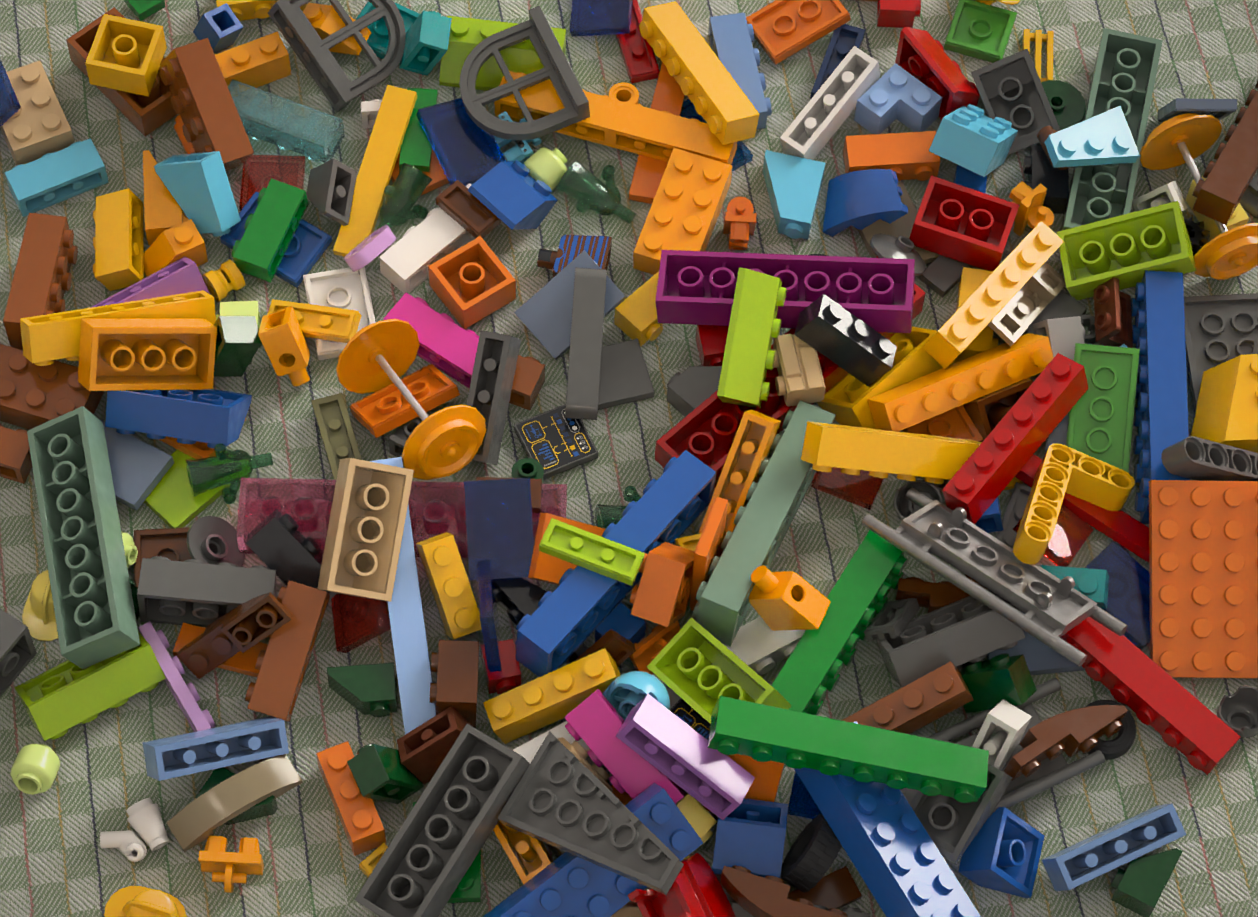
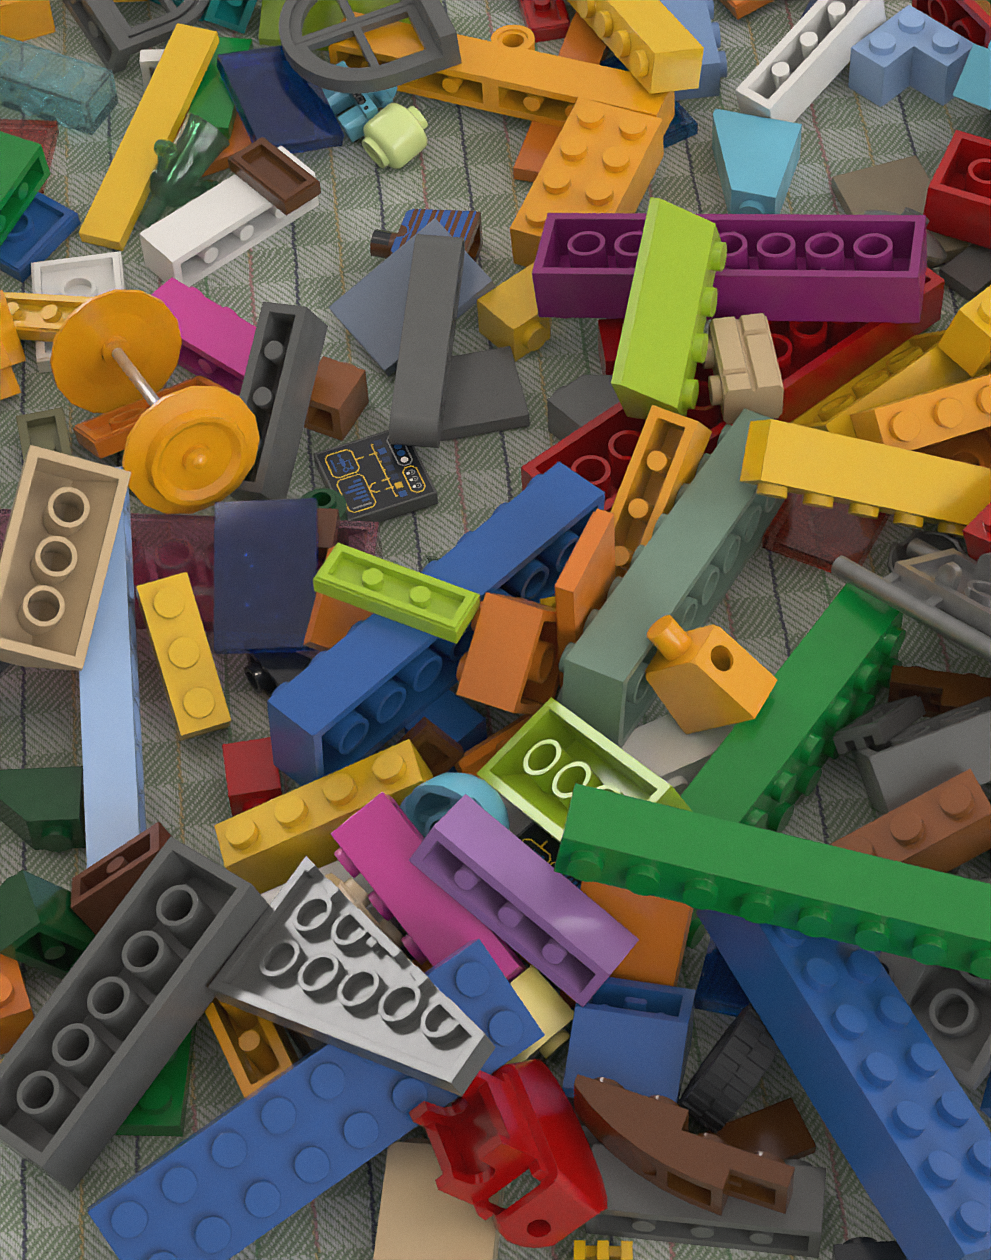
camera: 10 degrees right, 10 degrees down
(332, 190) = (87, 152): dark grey slope -> none
(358, 620) = (37, 707): clear red tile -> none
(370, 248) = (128, 225): lavender beam -> none
(456, 677) = (177, 784): reddish brown slope -> none
(472, 282) = (271, 262): orange brick -> none
(489, 616) = (233, 694): clear blue tile -> none
(514, 195) = (344, 159): blue slope -> none
(593, 193) = (461, 165): clear green piece -> none
(739, 222) = (672, 183): orange hips -> none
(845, 340) = (818, 325): black brick -> none
(862, 199) = (855, 166): blue slope -> none
(900, 152) = (896, 123): orange brick -> none

